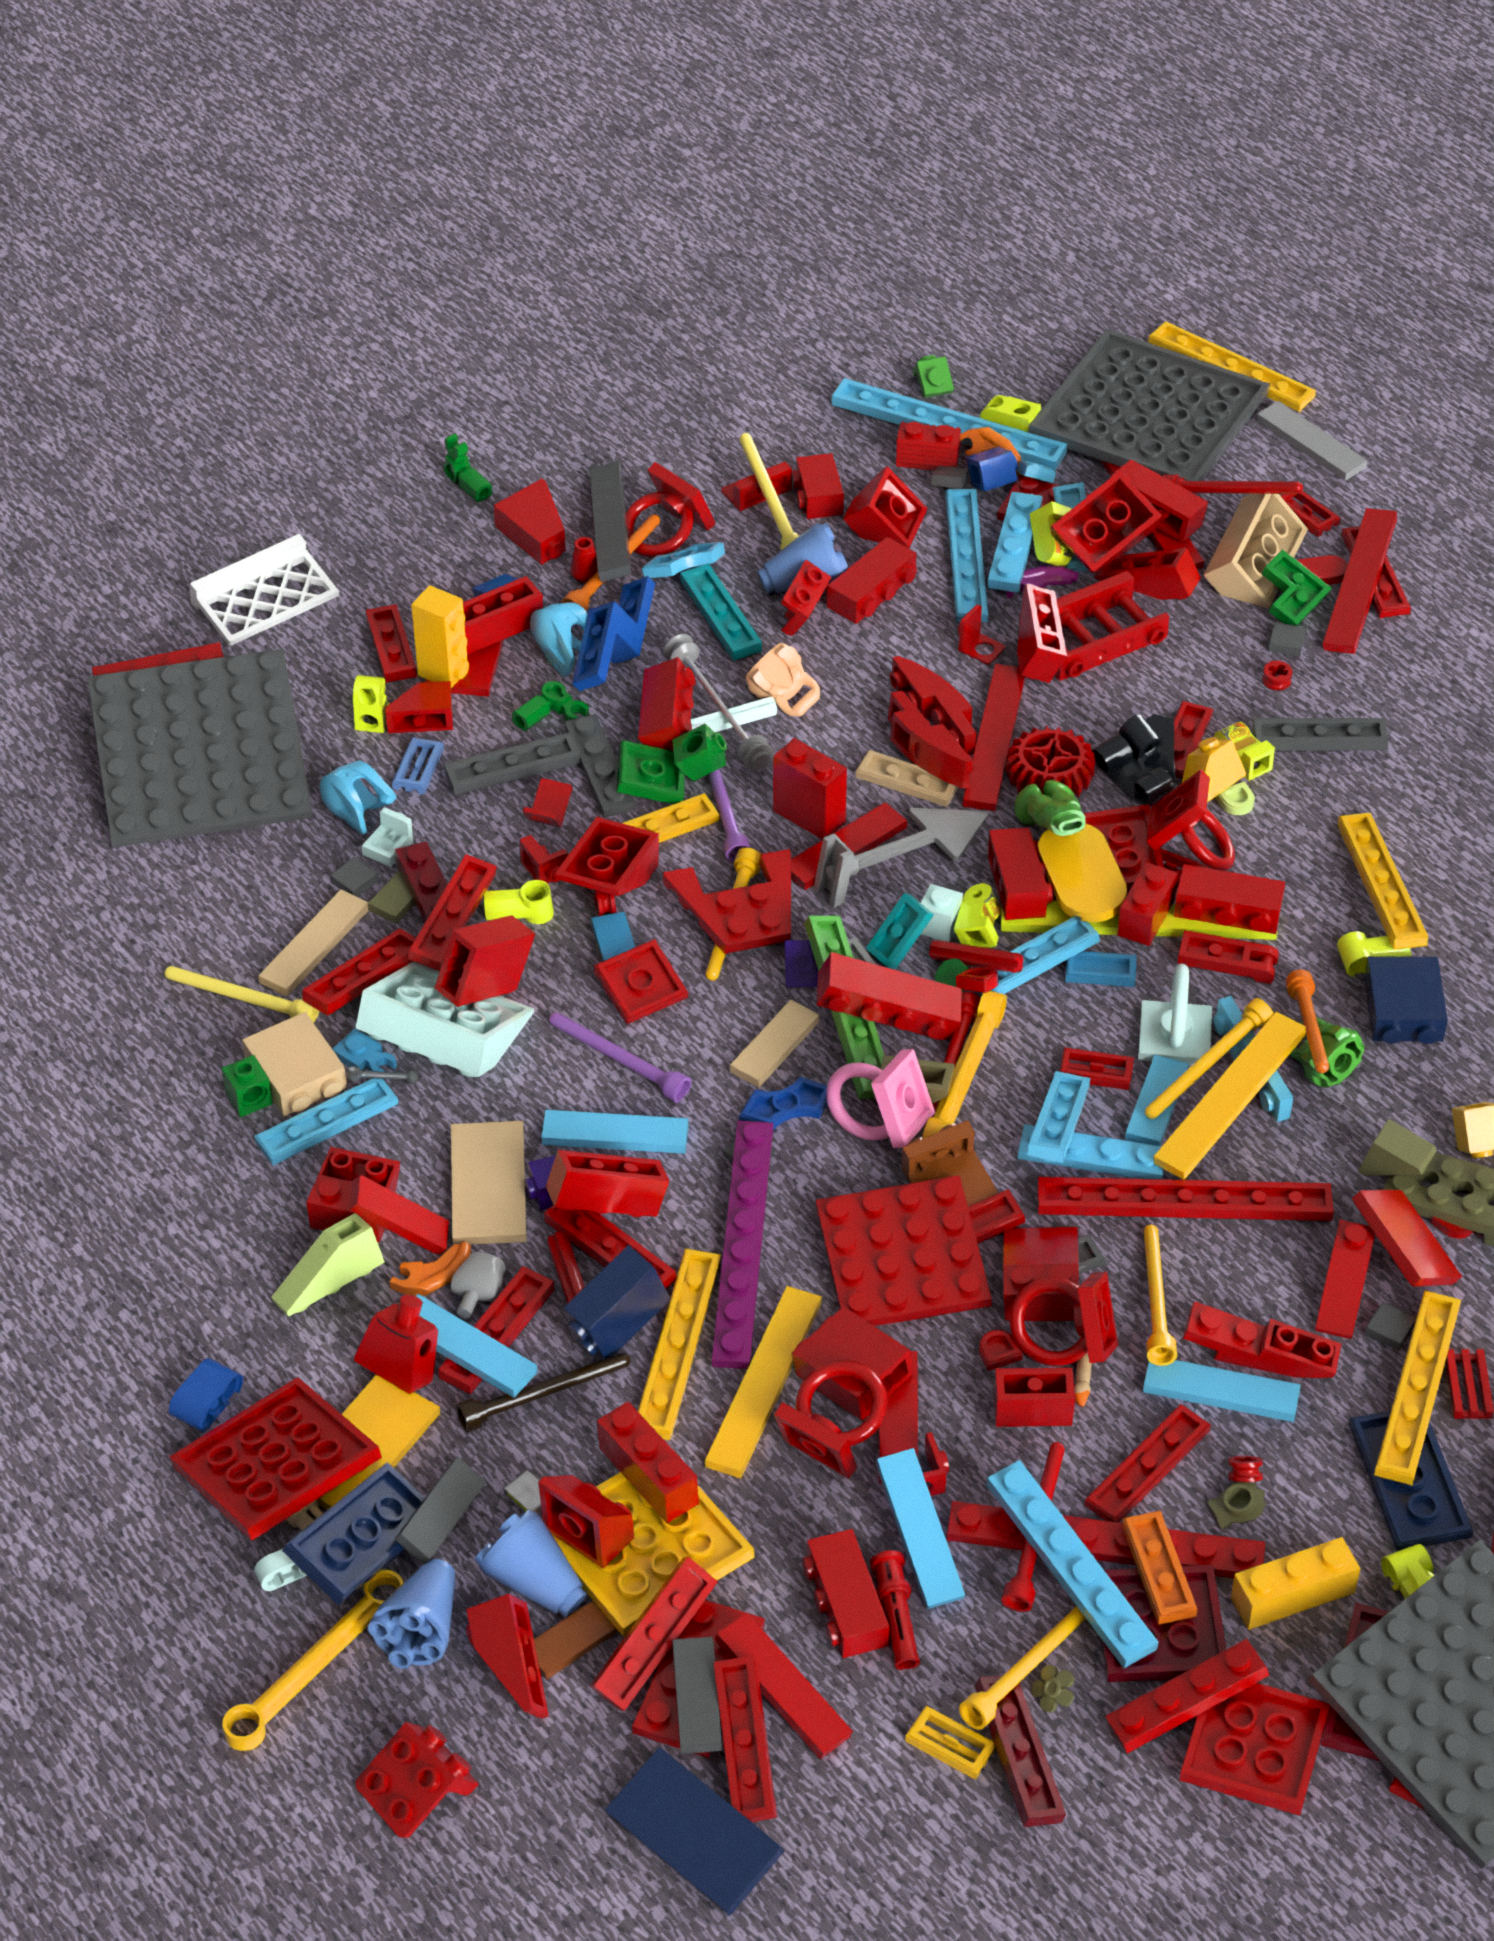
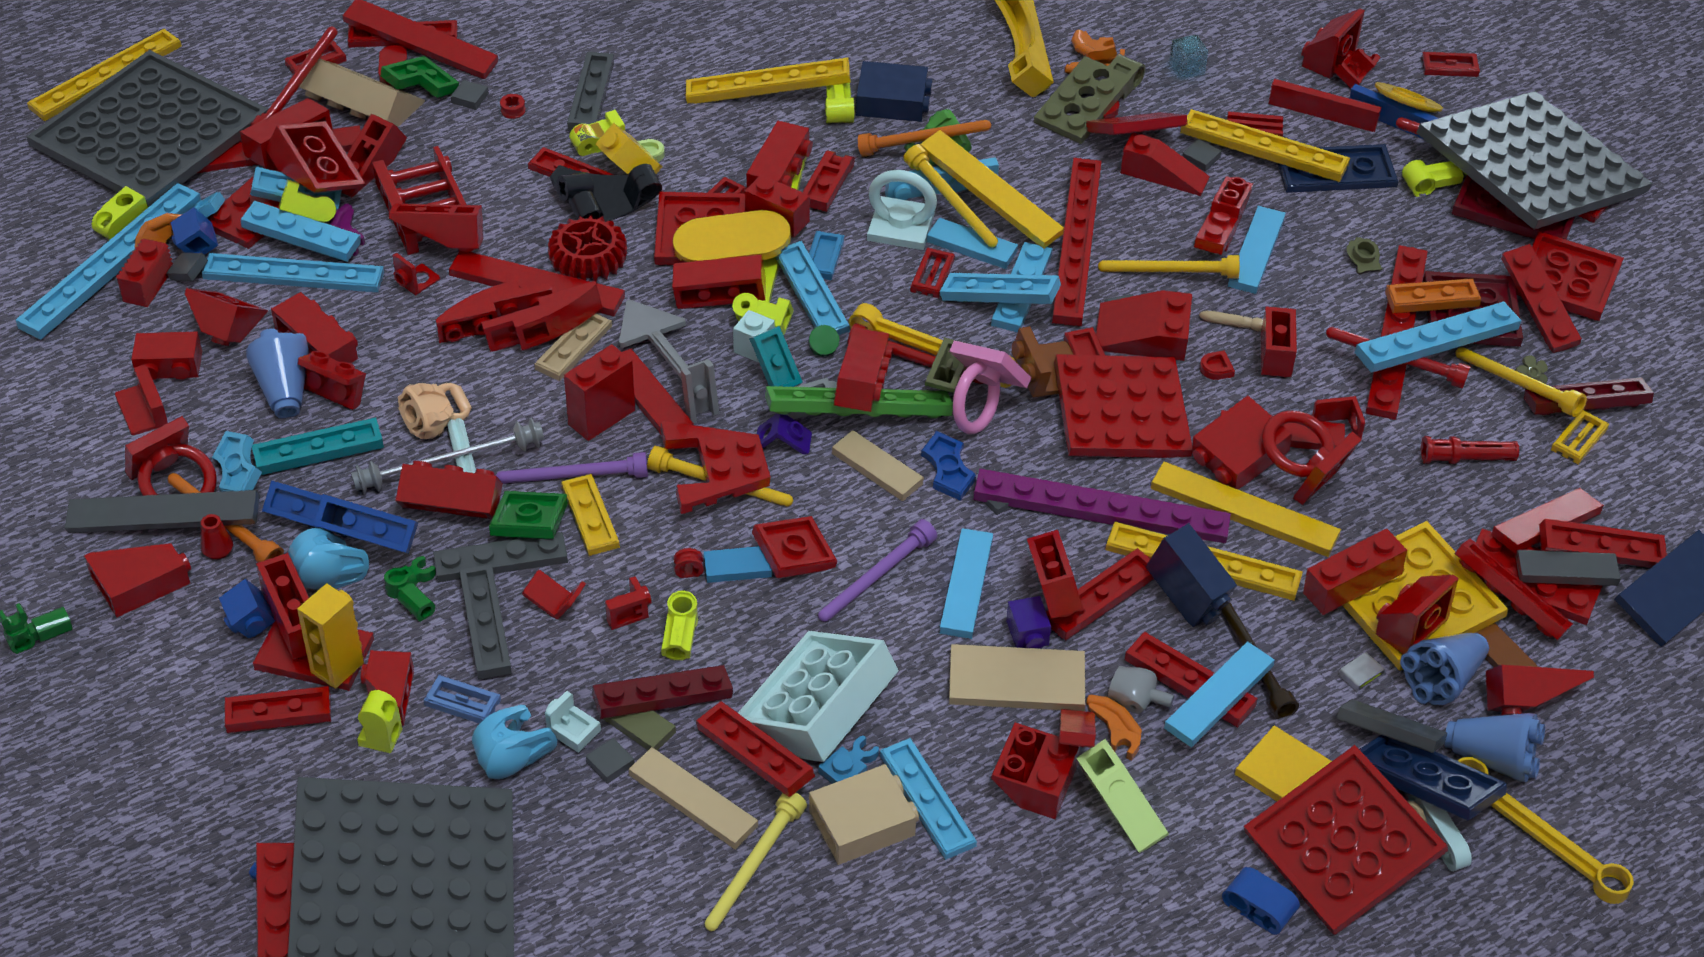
camera: 85 degrees left, 0 degrees up
(246, 574) = (131, 836): white fence -> none
(247, 1085) = (889, 852): green brick -> none
(354, 1073) = (881, 728): dark grey hinge -> none
(400, 1345) = (1222, 739): red torso -> none
(413, 1777) = (1656, 761): red bracket -> none
(452, 911) = (701, 665): red plate -> none
(484, 960) = (778, 638): red brick -> none
(565, 1265) = (1133, 625): red axle -> none
(611, 858) = (656, 542): red slope -> none
(699, 752) = (523, 483): green brick -> none
(768, 490) = (240, 384): light yellow piece -> none
(846, 1594) = (1459, 474): red brick -> none
(920, 1528) = (1403, 420): medium azure tile -> none
(933, 376) = (36, 259): bright green bracket -> none
(977, 956) = (812, 316): red axle -> none
(978, 979) = (843, 316): red tile -> none
(1054, 810) = (665, 240): bright green piece -> none
(1092, 1320) = (1215, 287): red tile -> none
(1147, 1465) = (1327, 298): red tile -> none
(1180, 813) = (693, 162): red tile -> none
(1245, 1469) = (1336, 243): red bush -> none
(1295, 1583) = (1440, 231): yellow brick -> none
(1311, 440) = (226, 42): light grey tile -> none
(1397, 1153) = (1052, 118): olive slope -> none

